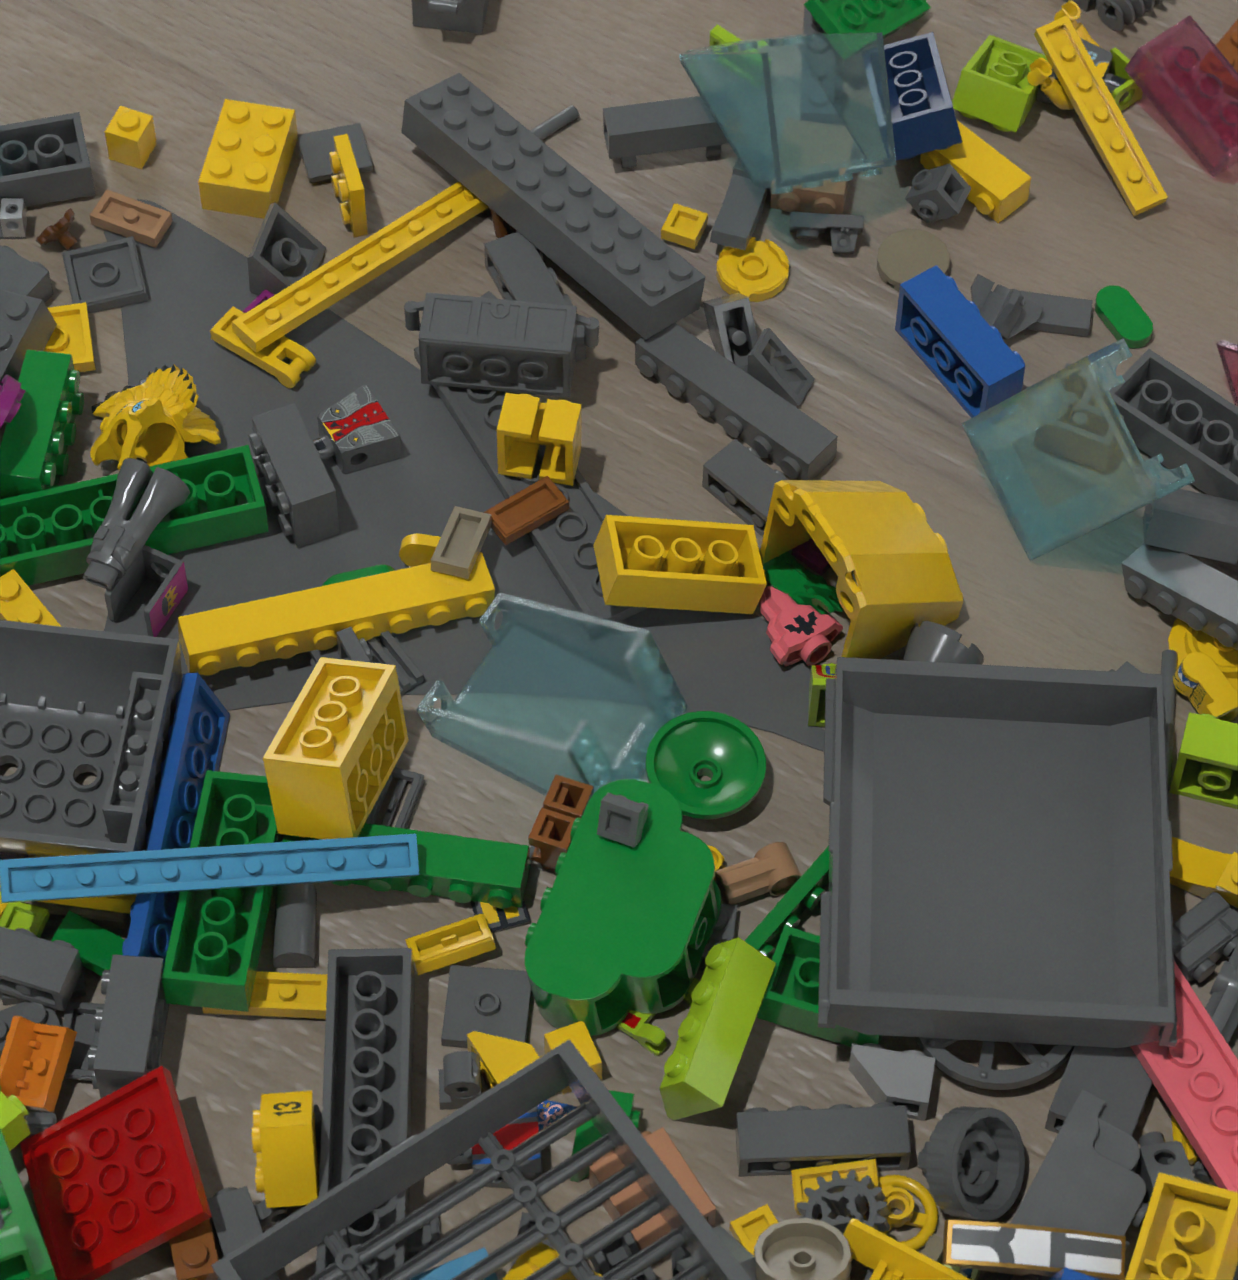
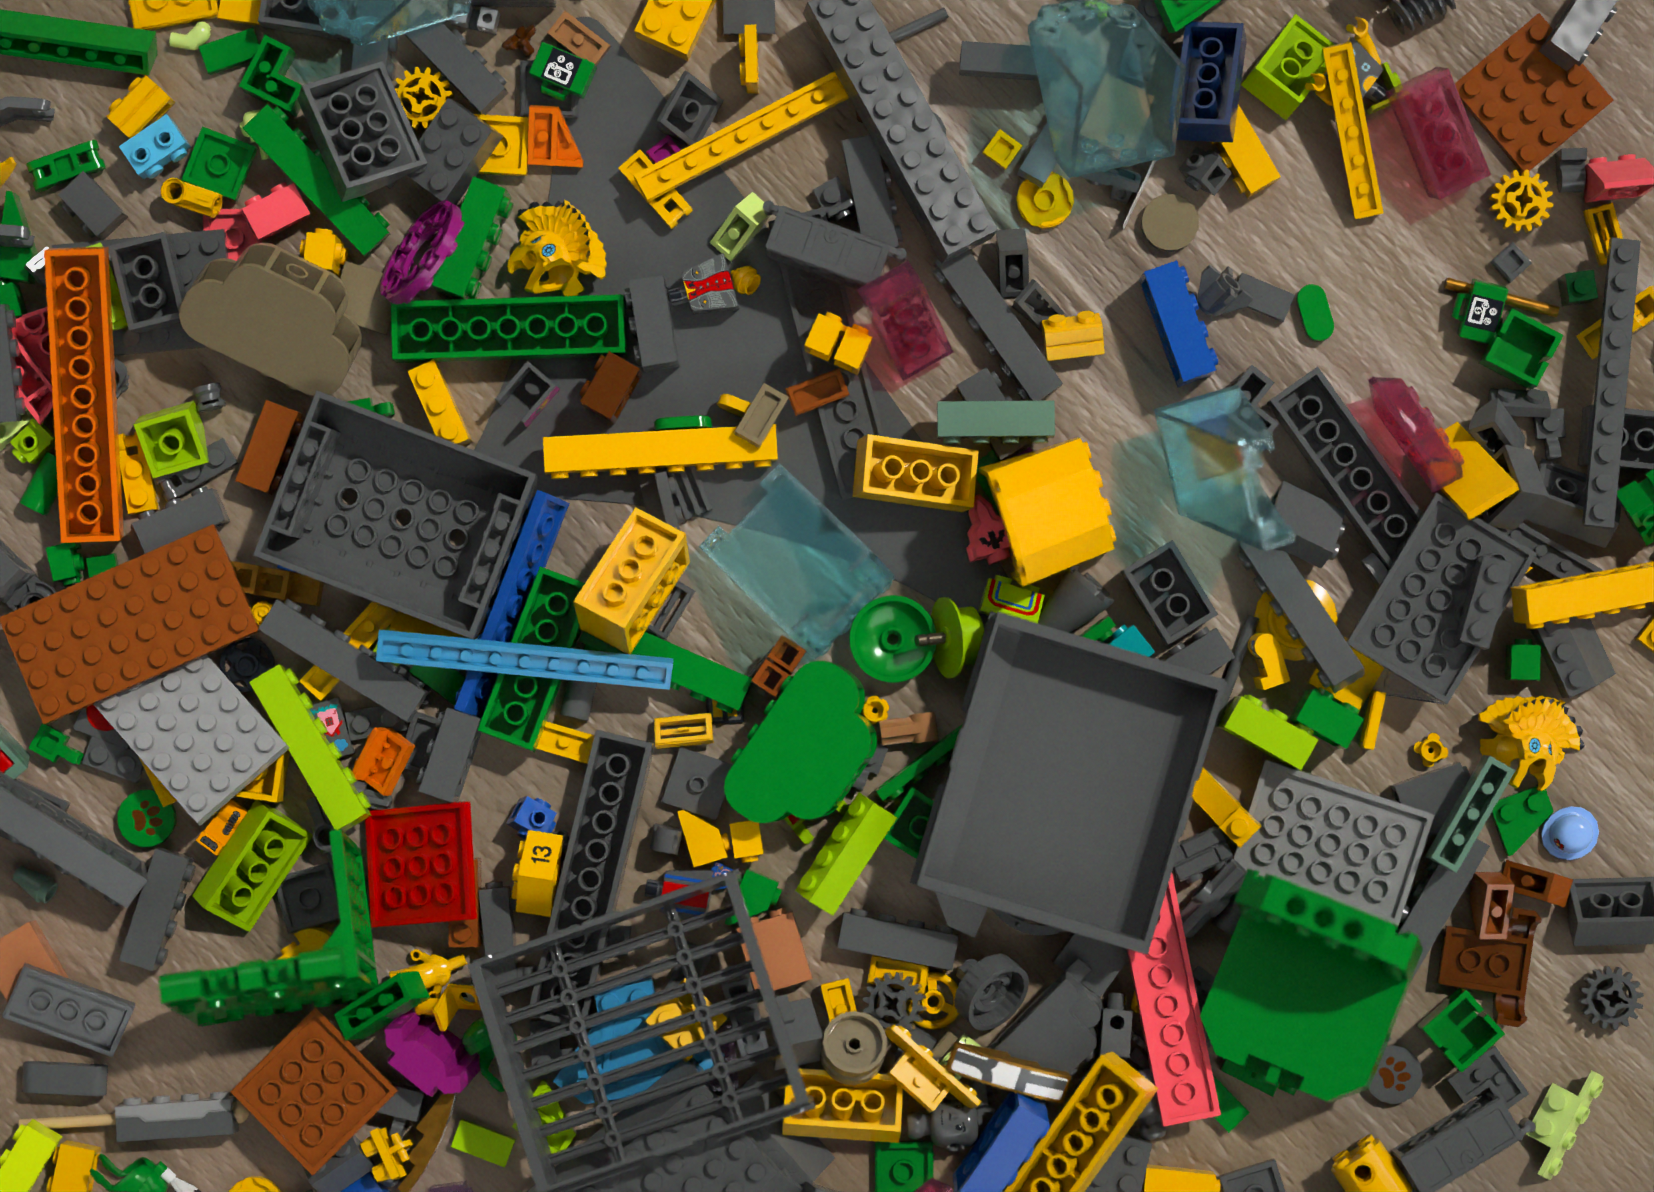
camera: 20 degrees right, 30 degrees up
(117, 243) = (562, 71): none -> piece
(117, 319) = (551, 139): none -> orange wing
(122, 538) = (510, 362): dark grey piece -> none
(255, 552) = (610, 387): none -> reddish brown brick
(256, 1080) = (533, 816): none -> blue brick
(382, 358) = (740, 226): none -> yellowish green slope
(404, 416) = (745, 280): none -> yellow plate
(618, 391) = (905, 320): none -> clear pink brick
(622, 819) = (813, 700): dark grey tile -> none
(746, 483) = (995, 421): none -> sand green brick
(789, 734) = (956, 636): none -> lime piece
(835, 389) = (1073, 336): none -> yellow brick
(866, 234) = (1138, 195): none -> white sticker
(1048, 629) = (1169, 593): none -> dark grey brick

